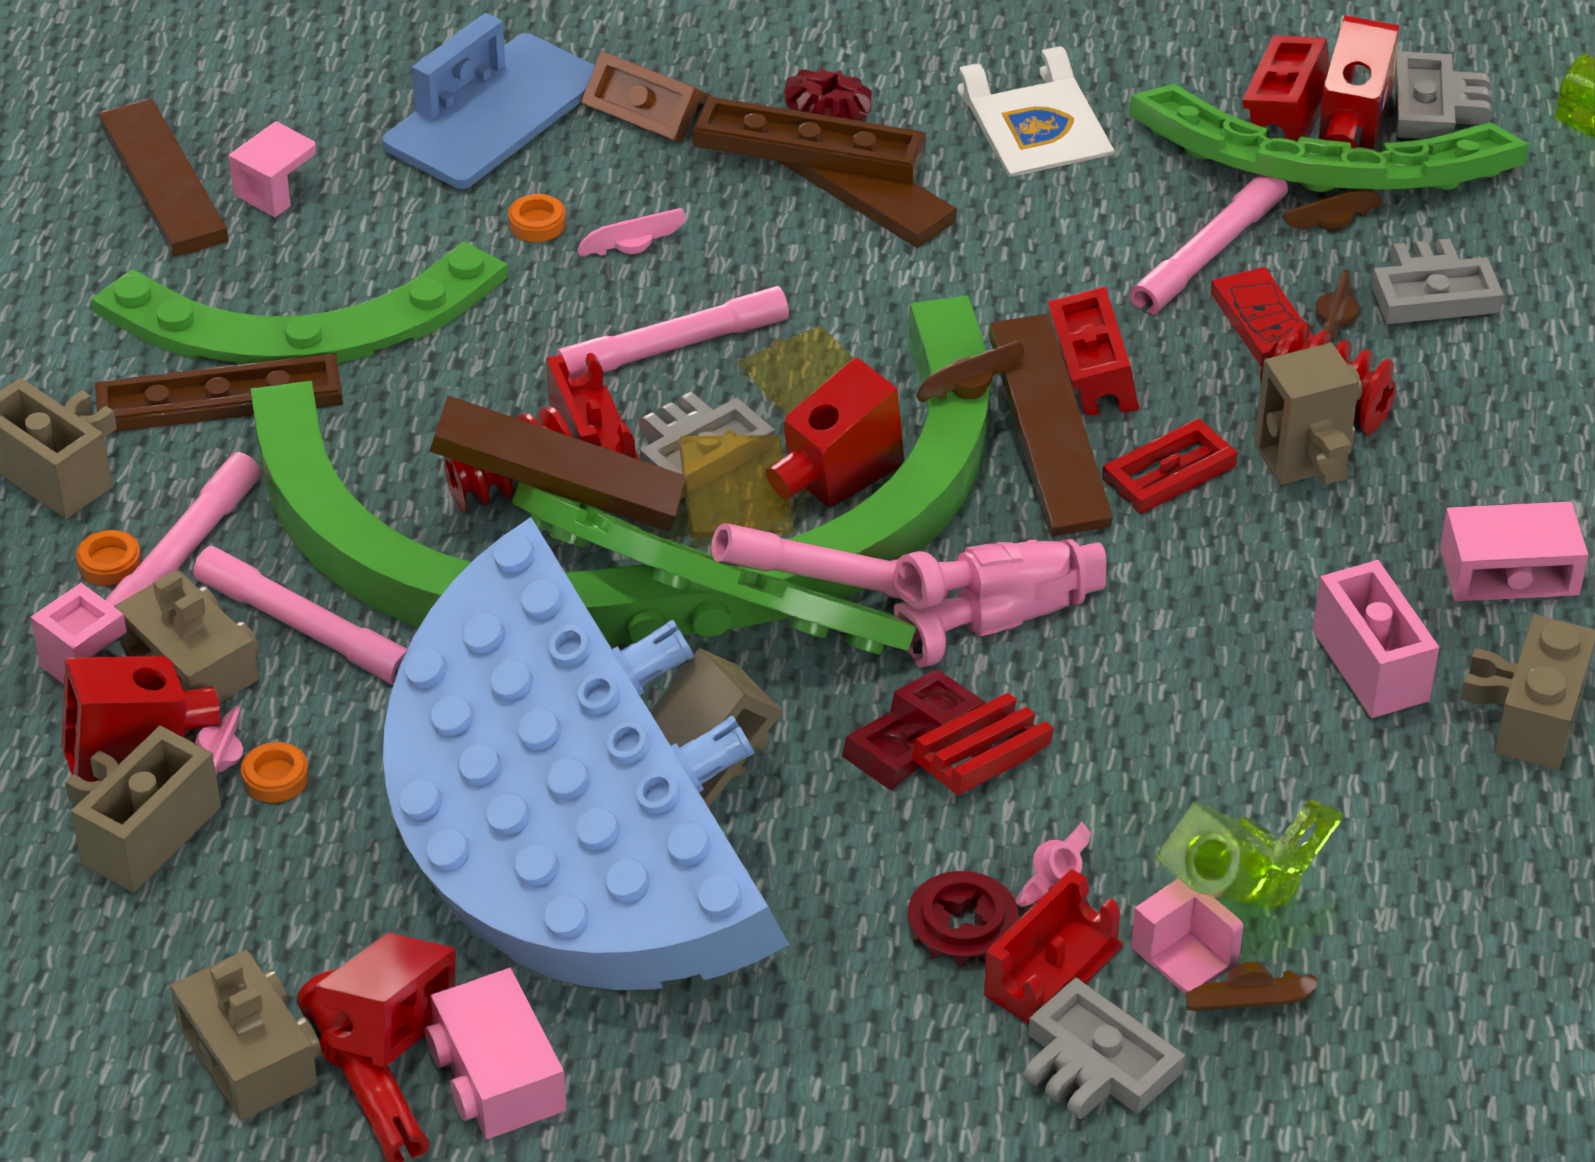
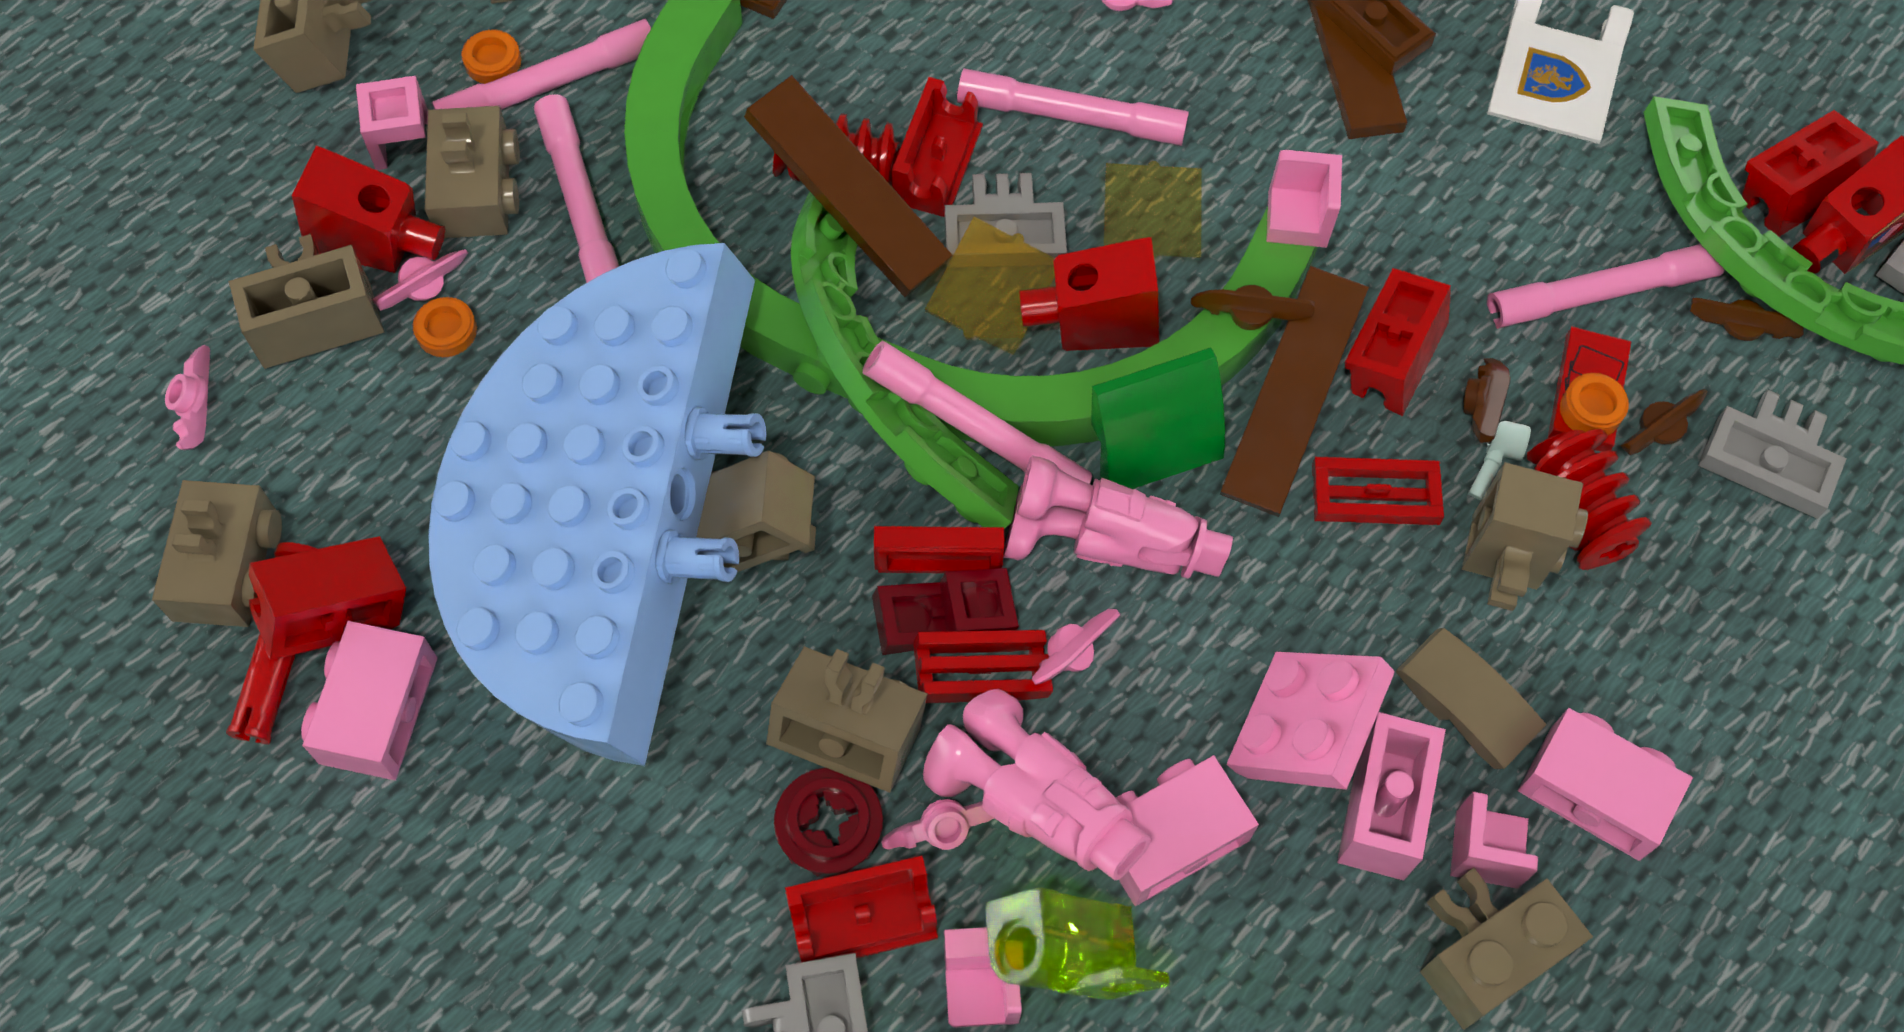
camera: 35 degrees right, 20 degrees up
(86, 949) = (188, 398): none -> bright pink piece
(869, 683) = (937, 548): none -> red tile
(915, 826) = (846, 717): none -> dark tan brick
(945, 277) = (1304, 198): none -> bright pink panel
(970, 486) = (1160, 420): none -> green slope
(1039, 689) = (1073, 646): none -> bright pink piece
(1114, 776) = (1041, 794): none -> bright pink piece
(1195, 360) = (1486, 398): none -> reddish brown piece
(1235, 752) = (1190, 824): none -> bright pink brick
(1238, 380) = (1509, 443): none -> light aqua hand
(1270, 622) = (1311, 719): none -> bright pink plate
(1276, 314) = (1594, 403): none -> orange tile
(1340, 544) = (1473, 696): none -> dark tan slope
(1463, 631) = (1491, 844): none -> bright pink panel

